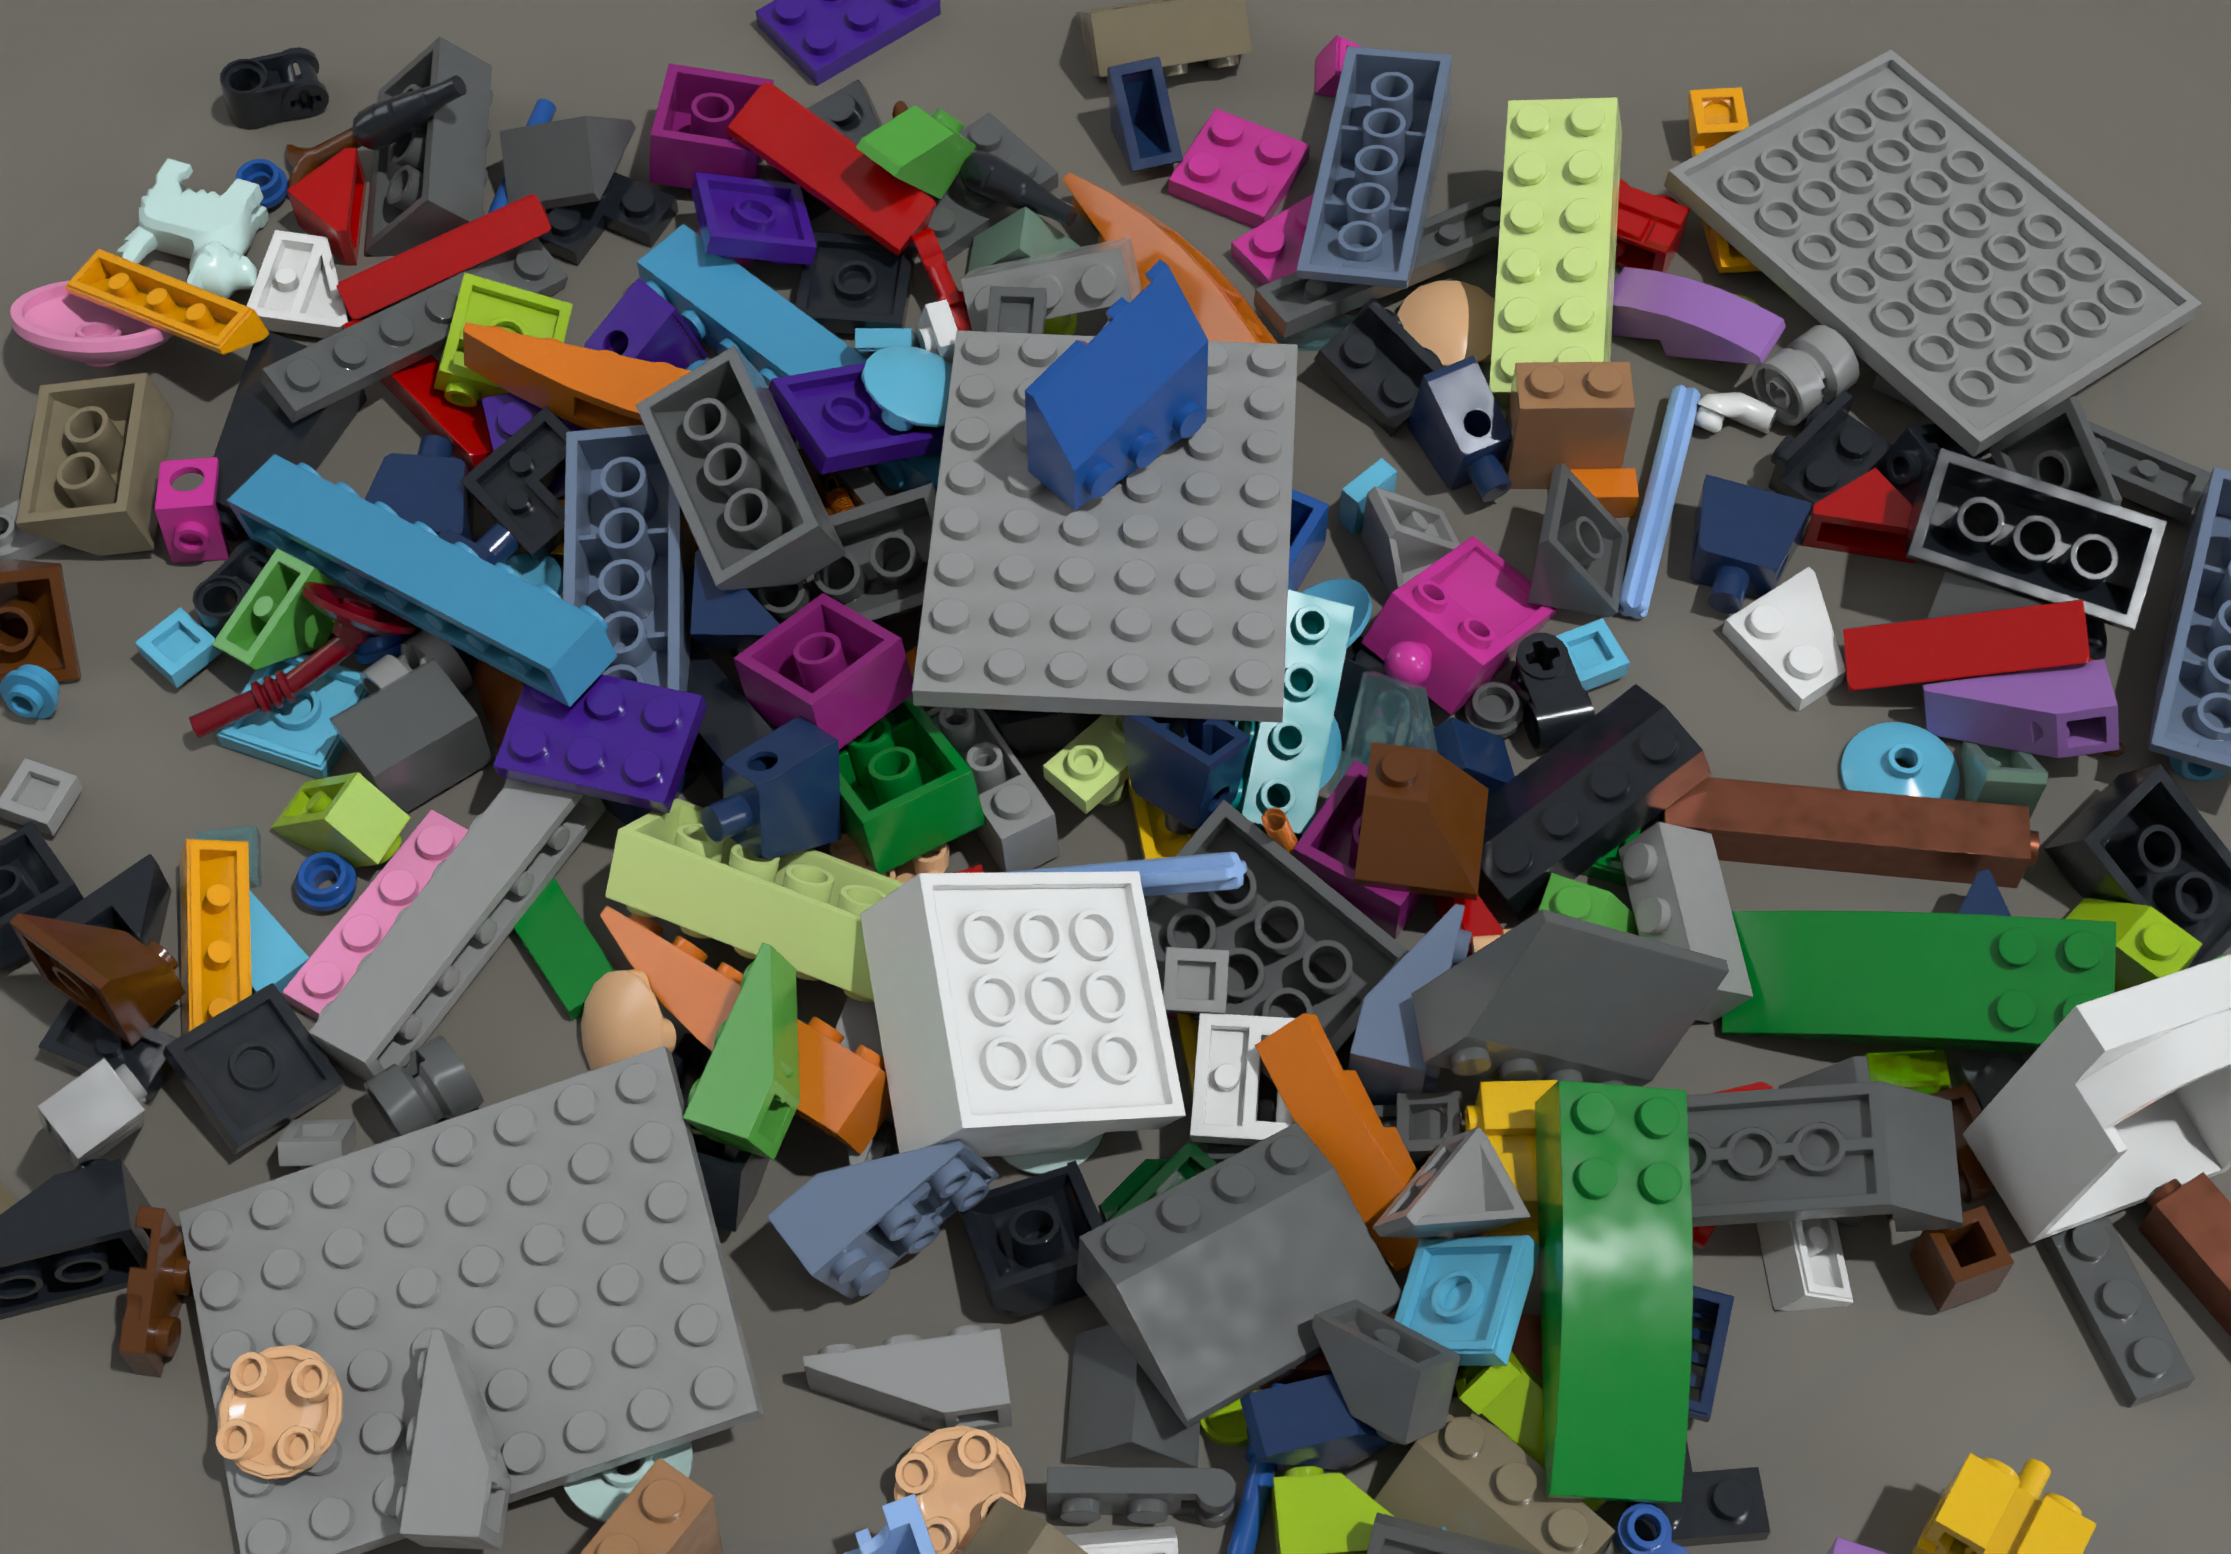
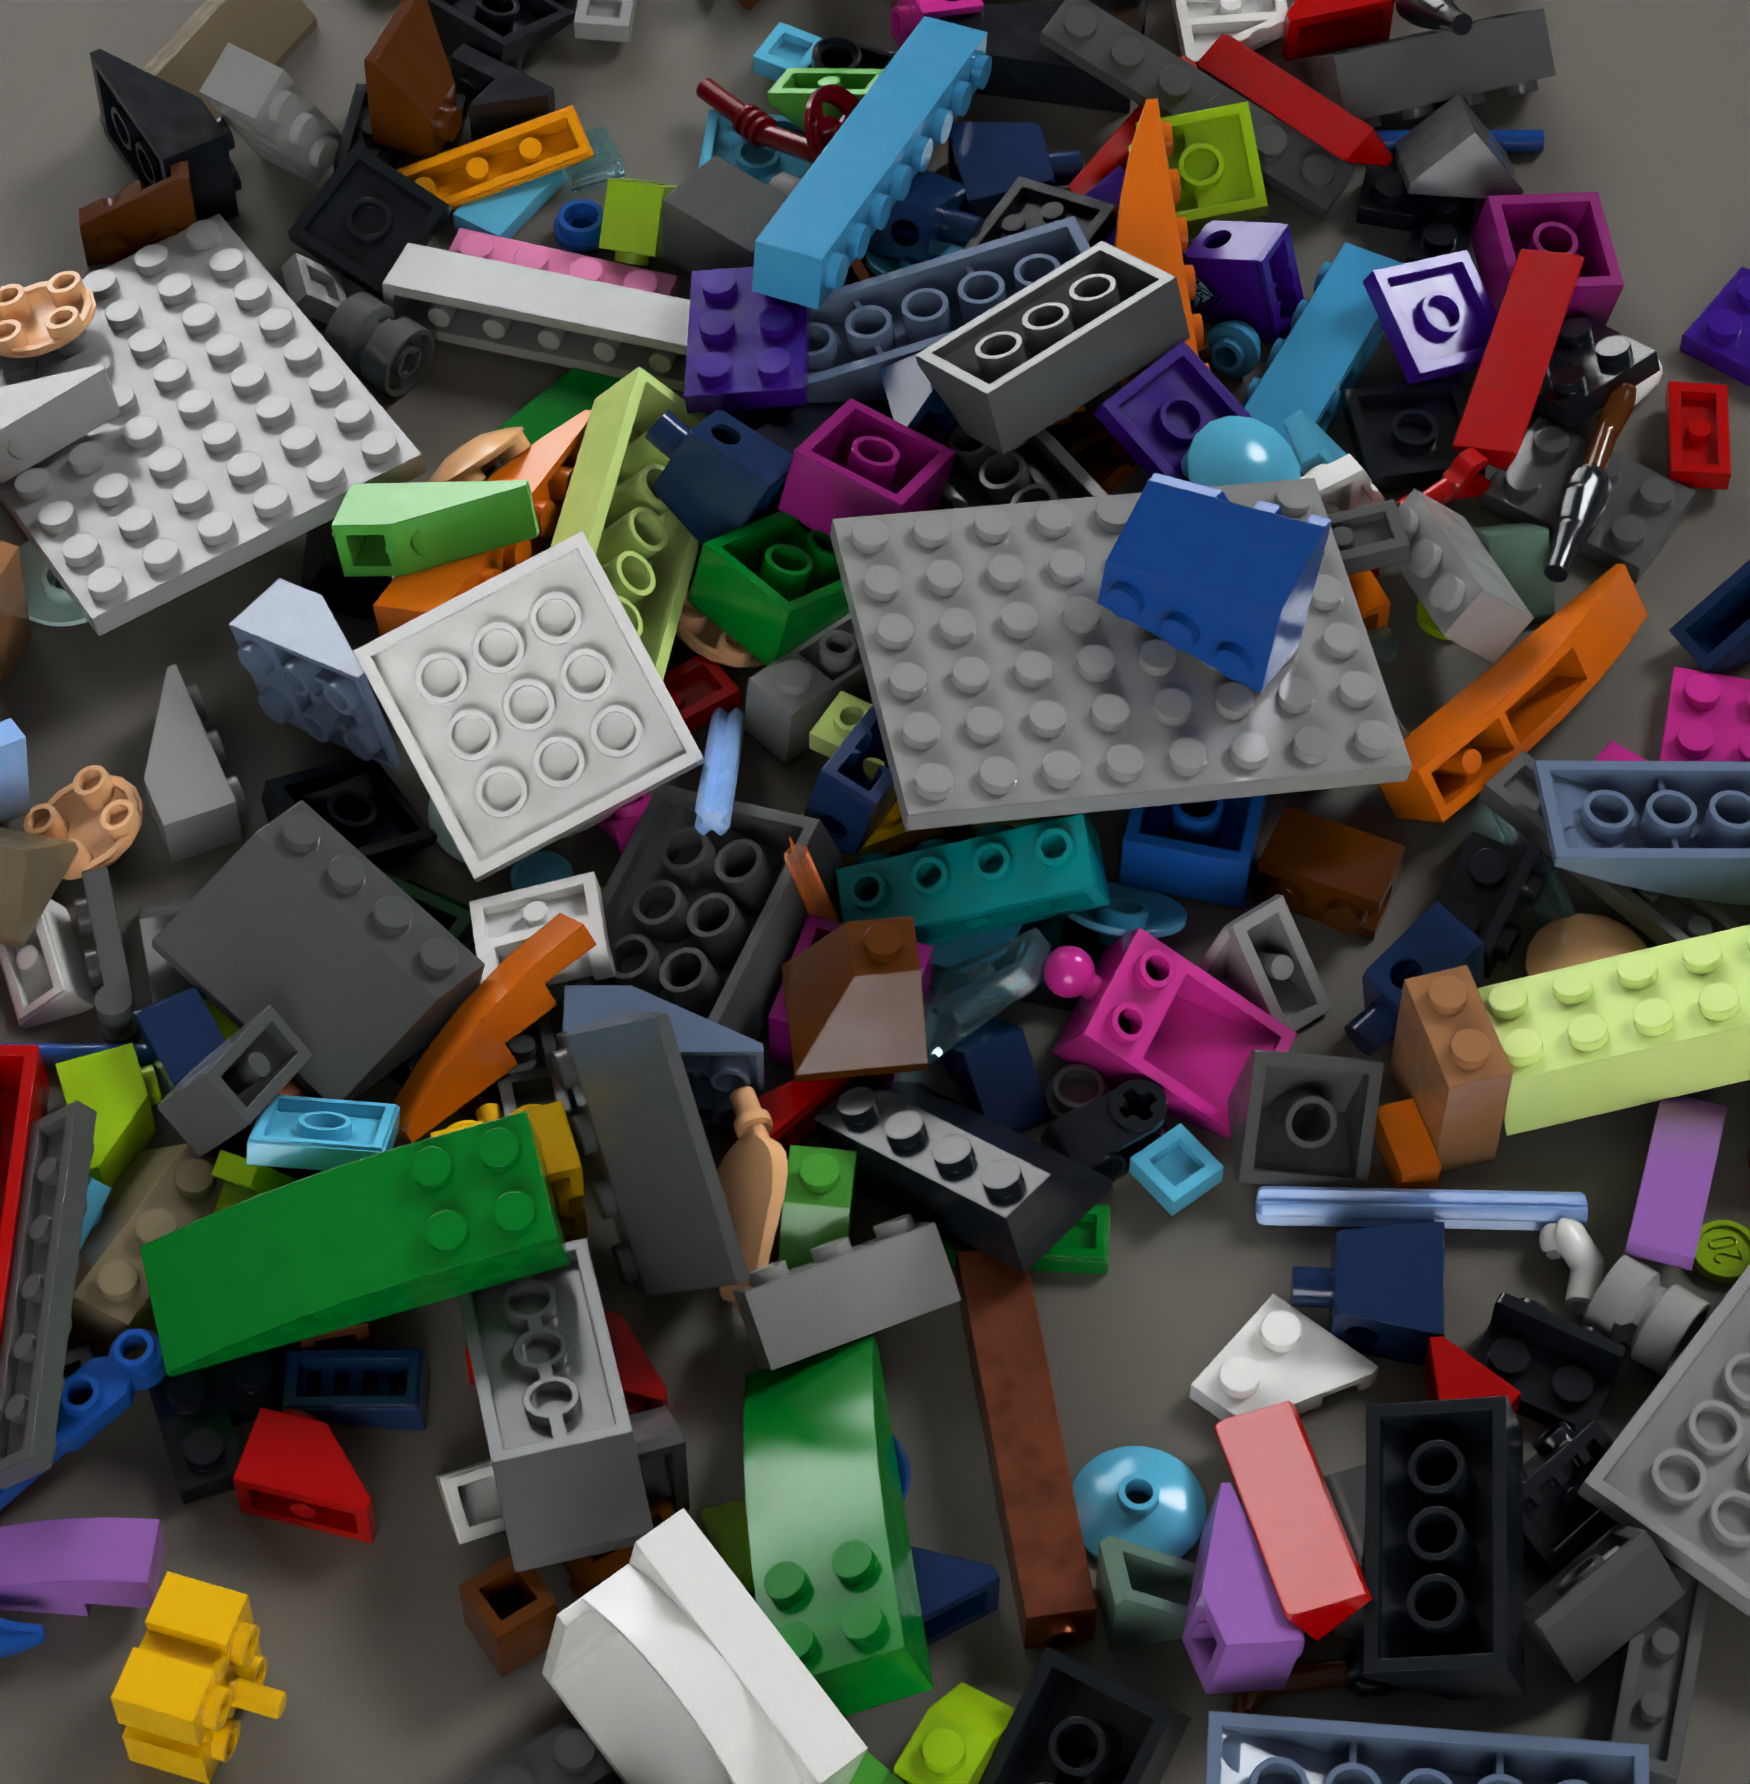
camera: 75 degrees right, 5 degrees down
(920, 148) = (1560, 408): bright green slope -> none
(928, 89) = (1698, 434): none -> red plate
(1196, 980) = (626, 859): light grey plate -> none
(1330, 453) = (1330, 872): none -> reddish brown brick
(1354, 494) = (1318, 924): medium azure plate -> none
(1455, 1193) = (425, 1098): light grey slope -> none
(1774, 1415) = (302, 1477): none -> red slope

